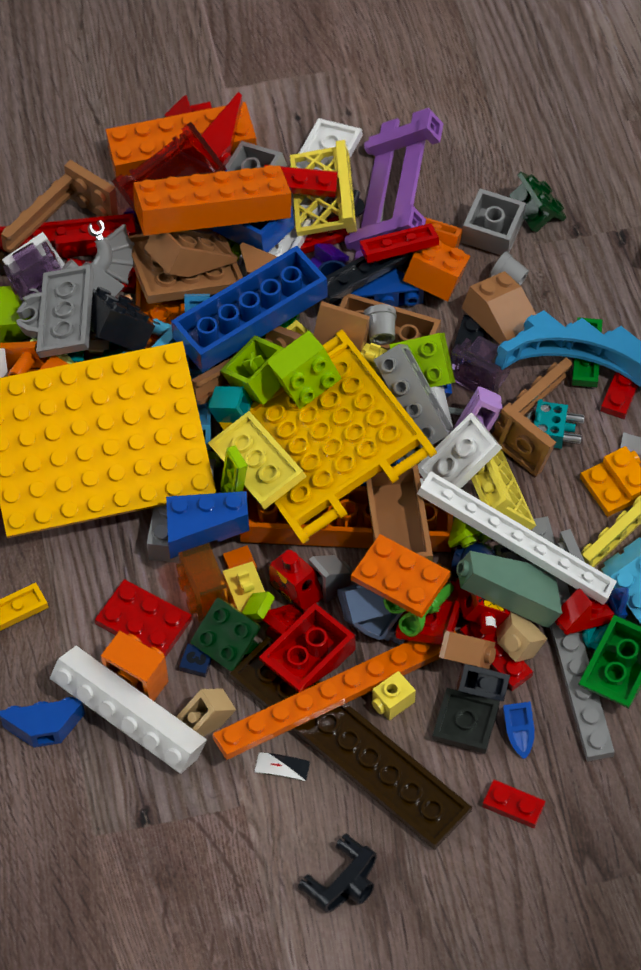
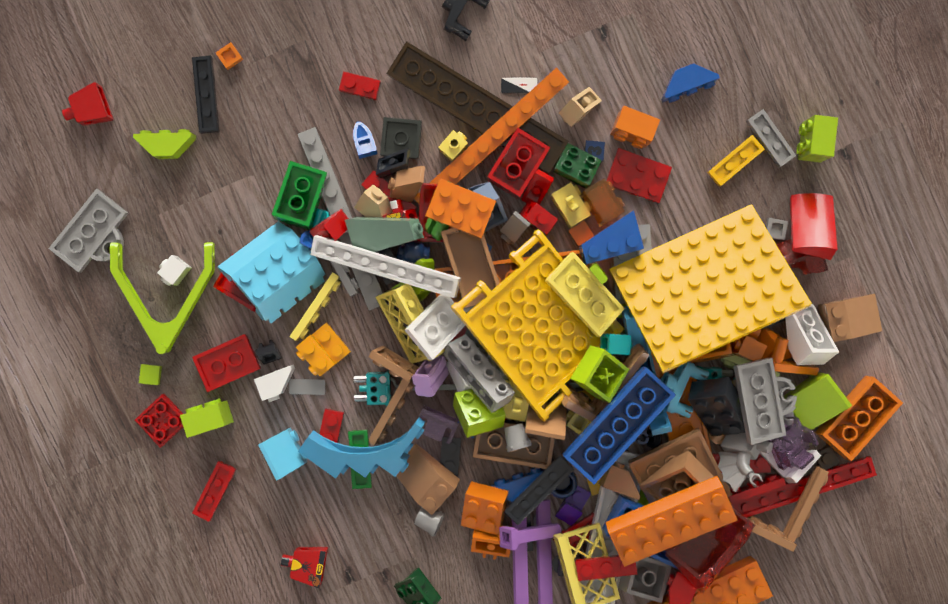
camera: 170 degrees right, 30 degrees up
(128, 709) = (630, 93): white brick -> none
(258, 605) = (559, 185): lime tile -> none
(304, 369) = (564, 367): lime brick -> none
(399, 243) = (515, 513): red plate -> none
(493, 222) = (448, 564): light grey brick -> none

